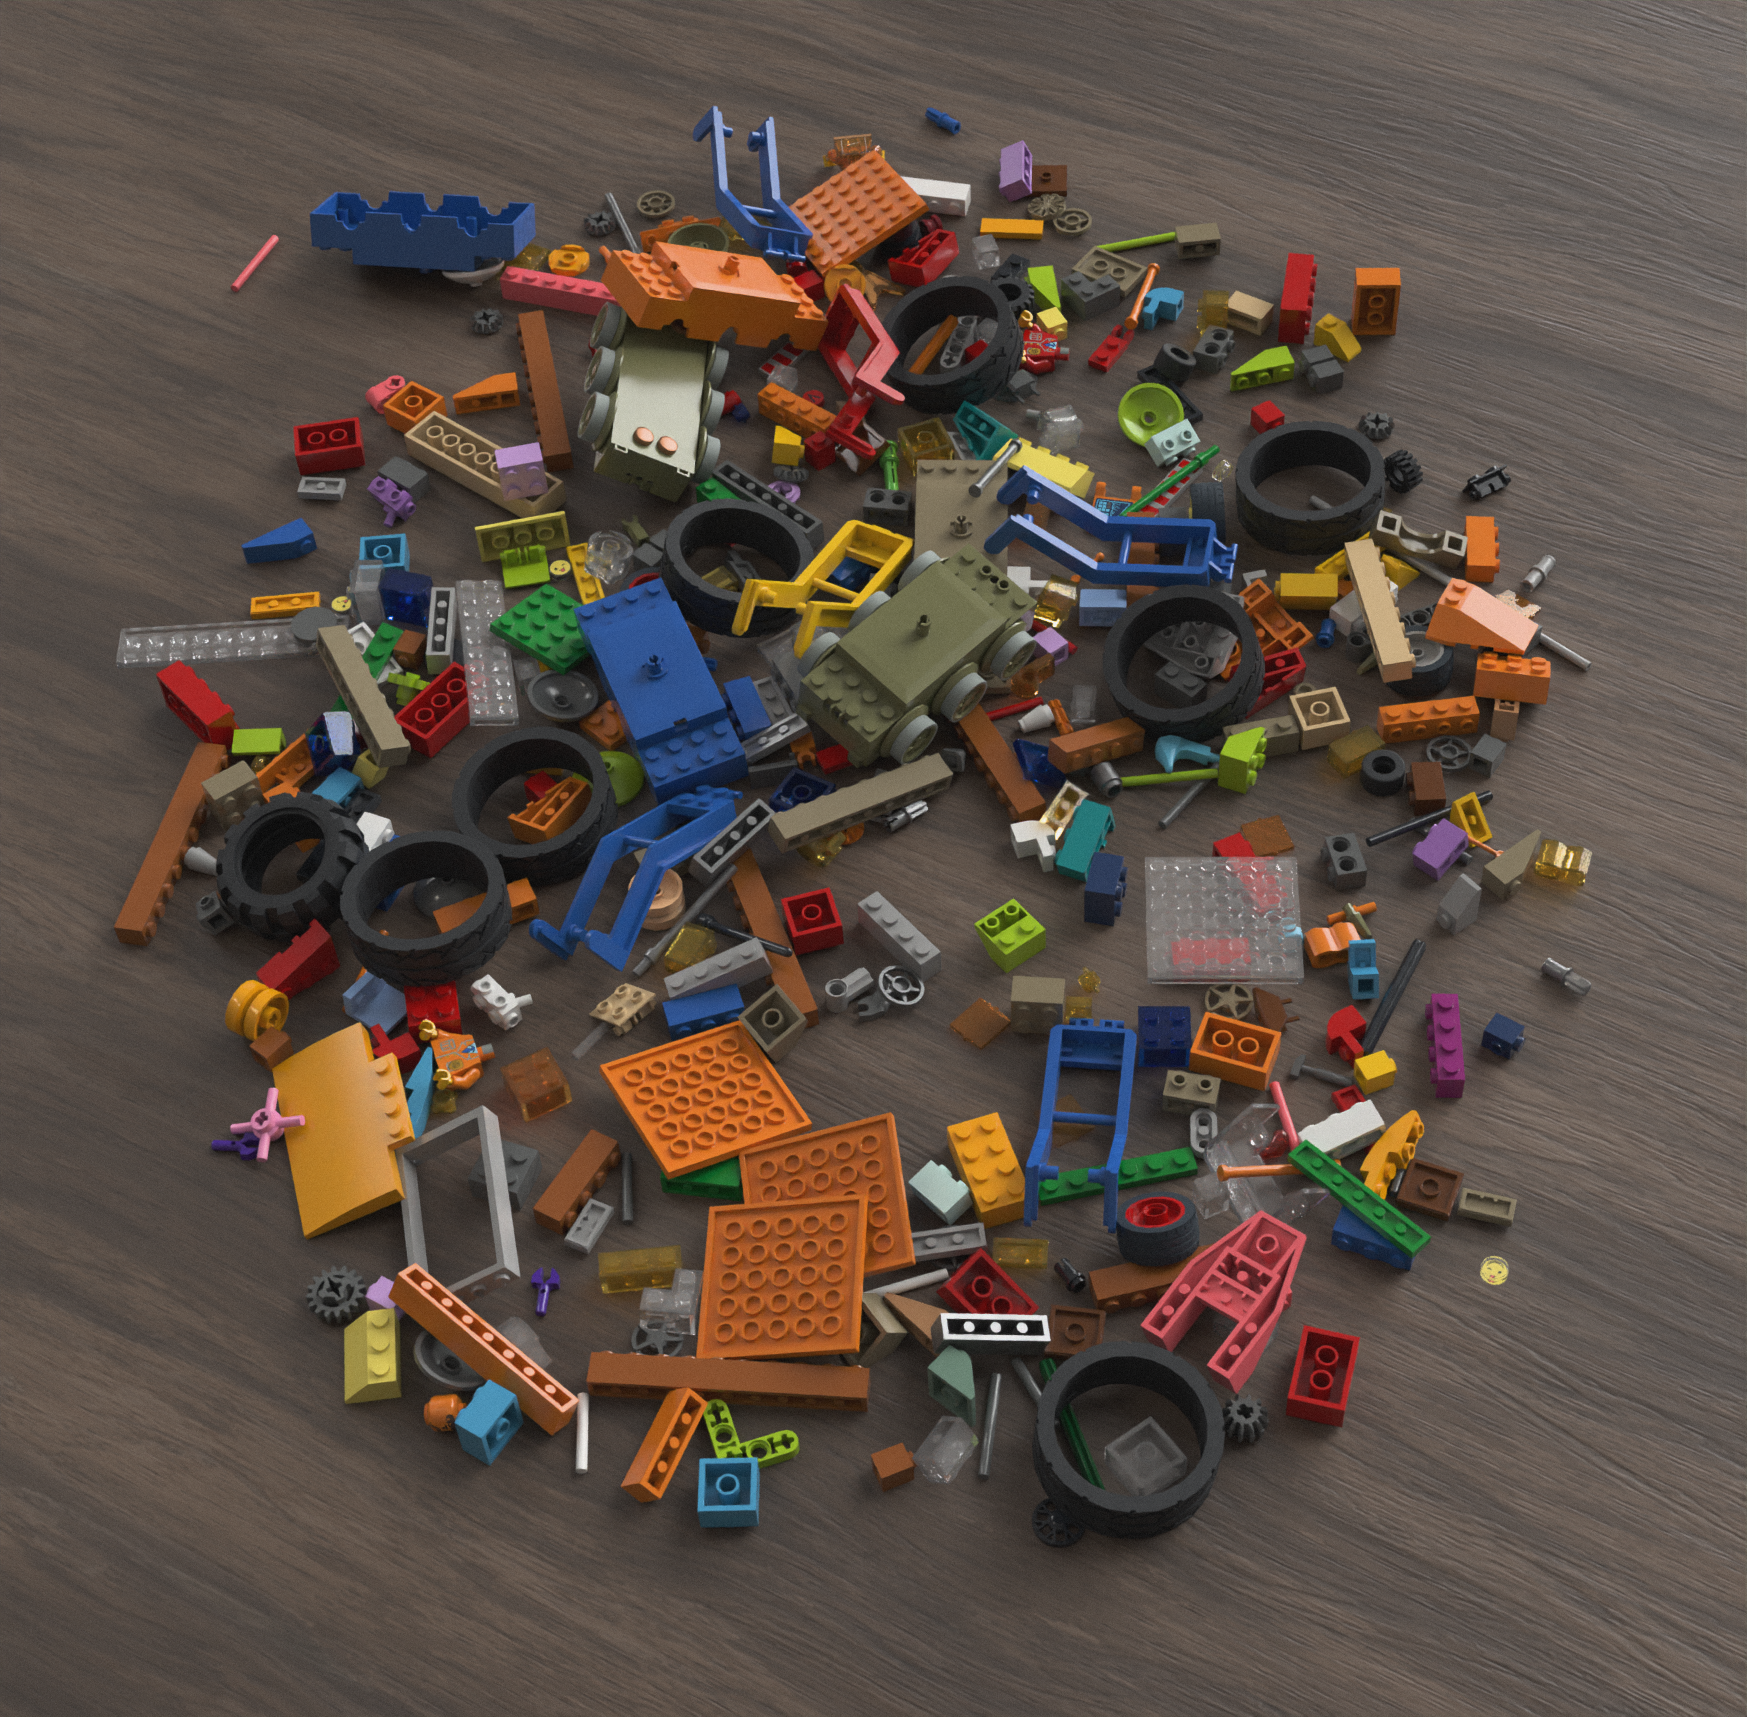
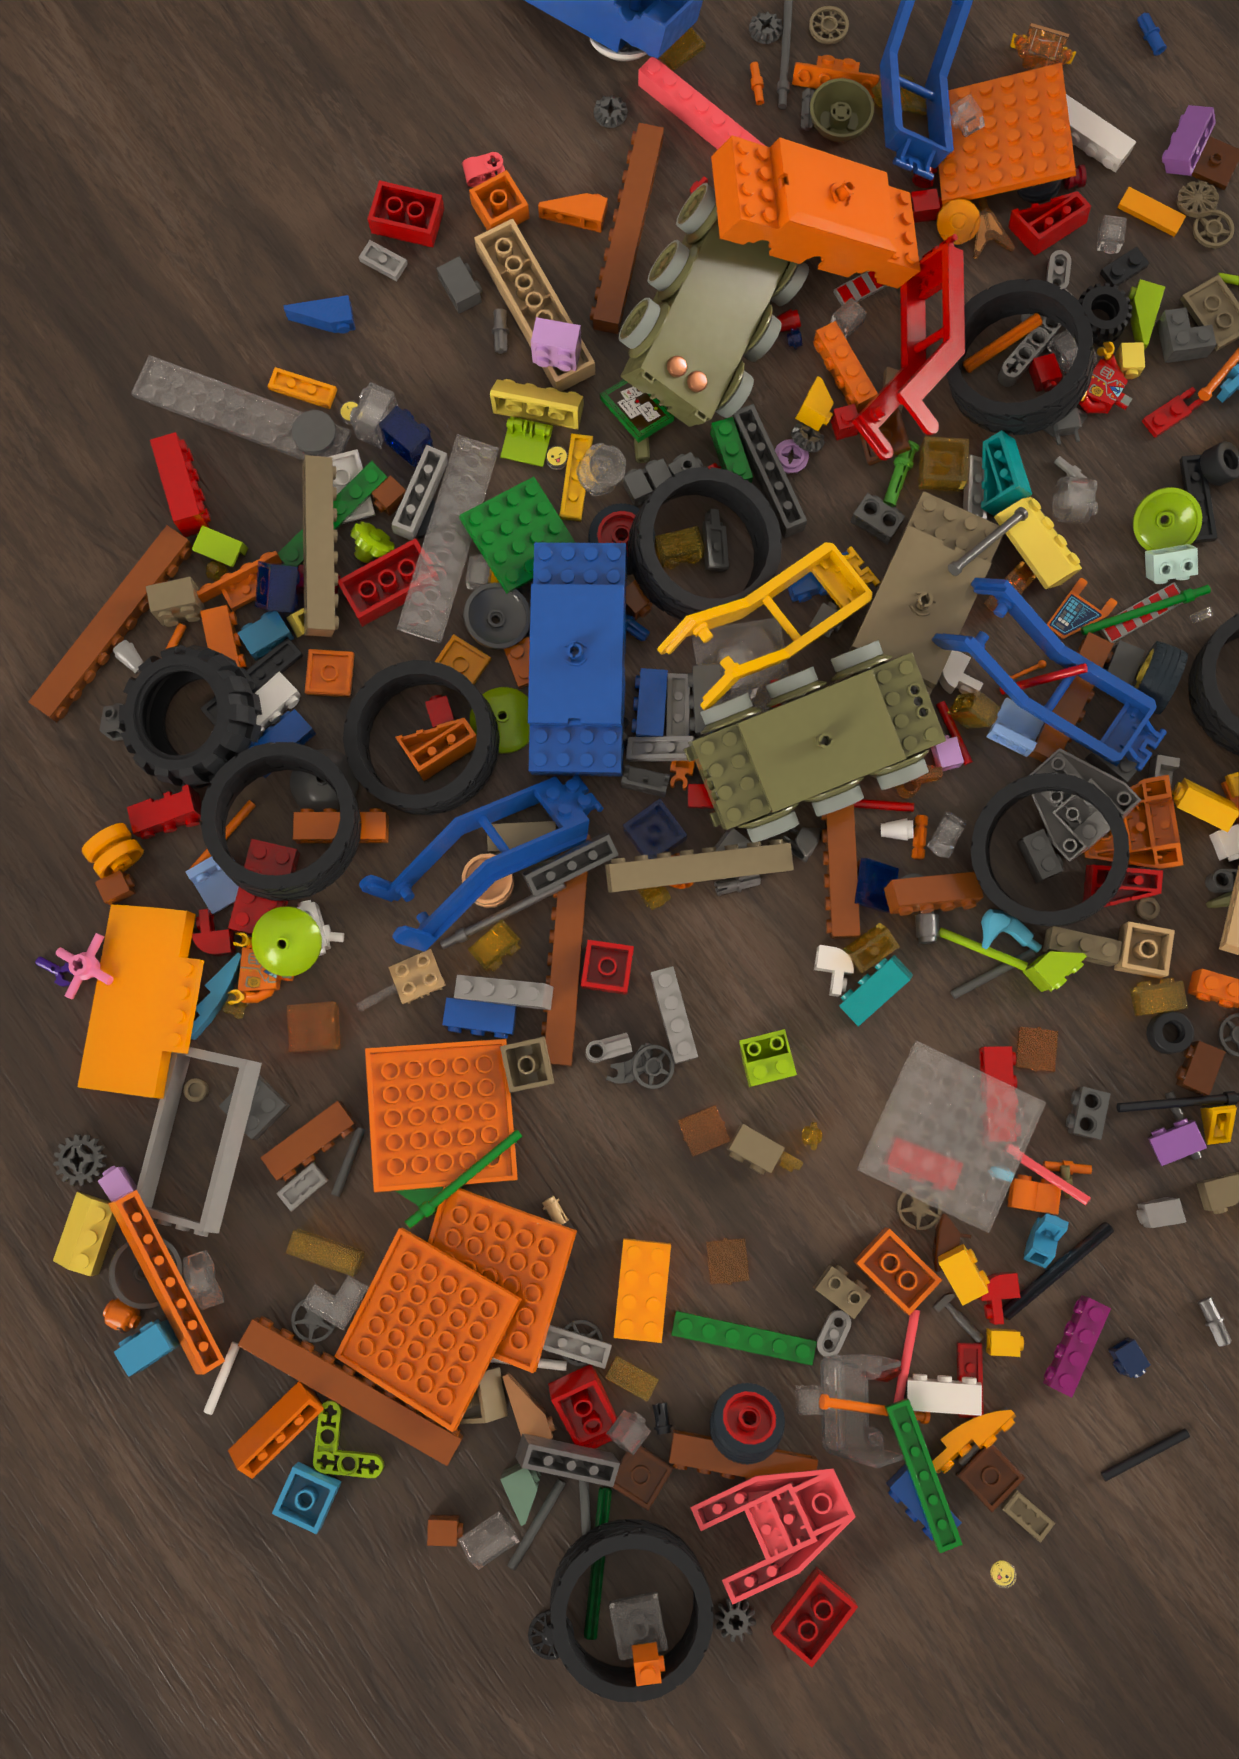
camera: 20 degrees right, 30 degrees up
(390, 549) = (406, 378): dark azure brick -> none
(395, 501) = (441, 311): medium lavender brick -> none
(415, 802) = (329, 673): none -> orange plate
(434, 1190) = (196, 1090): none -> dark tan tile
(459, 499) = (500, 330): none -> flat silver axle
(476, 1026) = (301, 938): none -> lime dish
(544, 1289) = (244, 1230): dark purple bar -> none
(569, 260) = (717, 64): light orange tile -> none
(618, 506) = (636, 410): none -> tile
(709, 922) = (520, 924): black piece -> none
(732, 1165) = (427, 1208): none -> green bar
(812, 209) = (967, 115): none -> clear brick
(815, 397) = (868, 351): red tile -> none
(941, 1192) = (593, 1294): light aqua brick -> none
(1041, 1293) = (629, 1431): none -> clear brick
(1090, 1047) = (785, 1207): blue piece -> none
(1105, 889) = (868, 1052): dark blue brick -> none
(1110, 547) = (1052, 676): none -> red bar
(1164, 1036) = (847, 1224): clear blue brick -> none
(1170, 1467) = (647, 1664): none -> orange brick
(1298, 1018) = (963, 1274): none -> yellow brick
(1325, 636) = (1201, 849): blue pin -> none
(1342, 917) = (1056, 1180): none -> coral bar
(1484, 847) = (1227, 1165): orange hinge -> none
(1569, 1113) = (1145, 1454): none -> black bar

